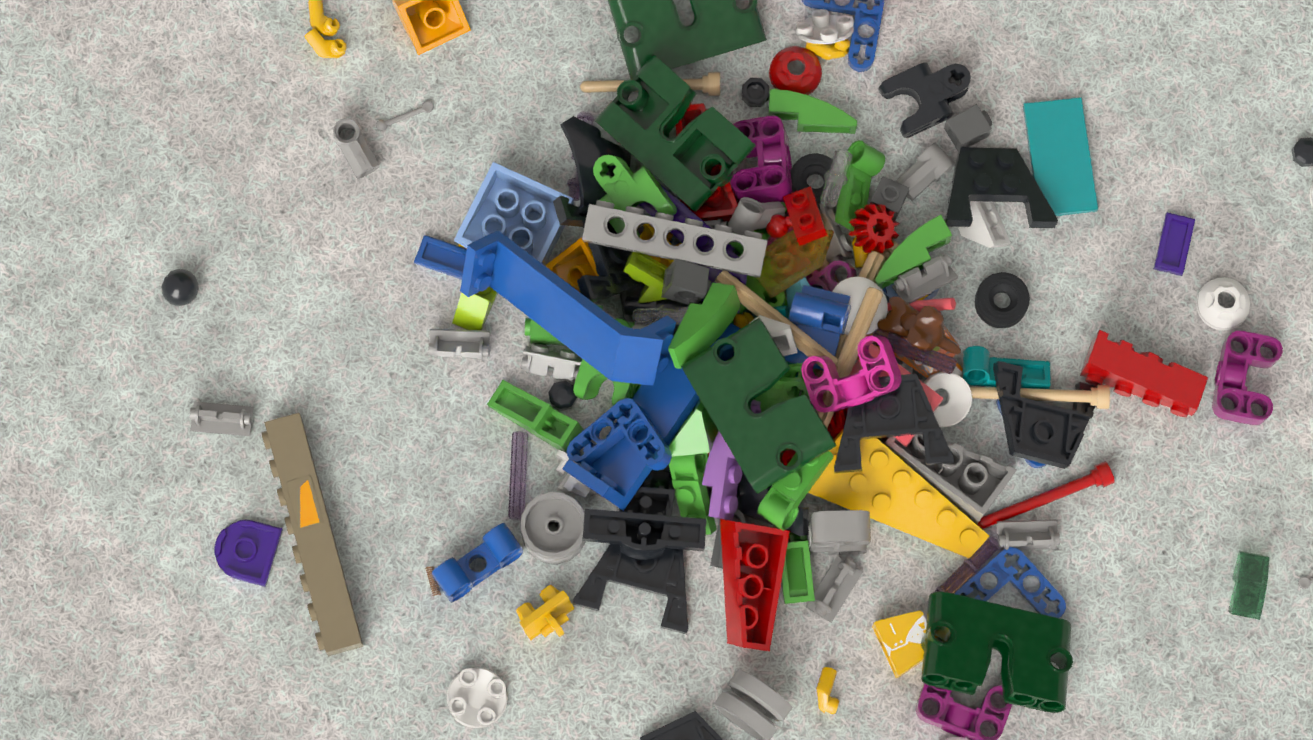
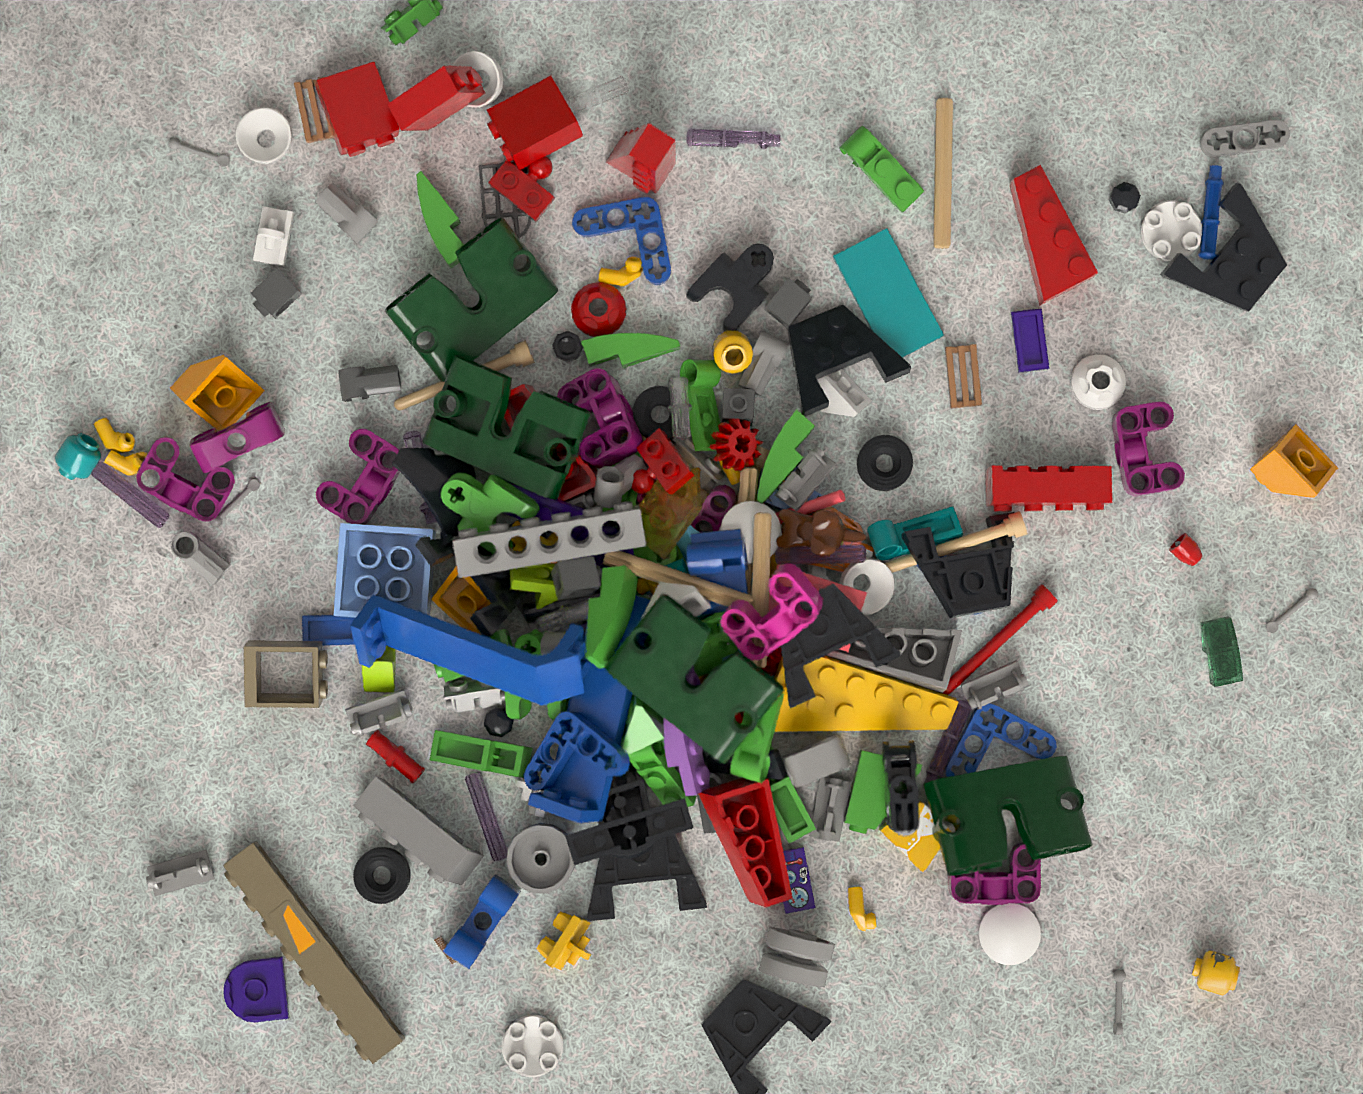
camera: 20 degrees left, 10 degrees up
(180, 287) = (86, 761): black piece -> none
(283, 22) = (78, 456): none -> teal head
(315, 73) = (130, 494): none -> clear purple axle
(359, 84) = (178, 491): none -> magenta beam
(361, 264) = (252, 675): none -> dark tan window
(396, 474) = (365, 882): none -> black tyre
(452, 463) = (416, 832): none -> light grey wedge
(454, 55) = (259, 429): none -> magenta beam
(457, 389) = (395, 756): none -> red pin
(533, 144) = (371, 486): none -> magenta beam
(560, 54) = (364, 382): none -> dark grey piece
(781, 643) = (799, 881): none -> tile
(825, 28) = (611, 256): white dish -> none
(885, 585) = (867, 794): none -> bright green slope
(901, 150) = (732, 351): none -> yellow head
(902, 601) = (903, 808): none -> black piece
(1096, 45) = (882, 168): none -> bright green plate
(1108, 228) = (963, 376): none -> medium nougat tile
(1149, 70) = (943, 173): none -> tan axle
(1225, 161) = (1051, 242): none -> red wedge
(1250, 482) = (1187, 550): none -> red hose

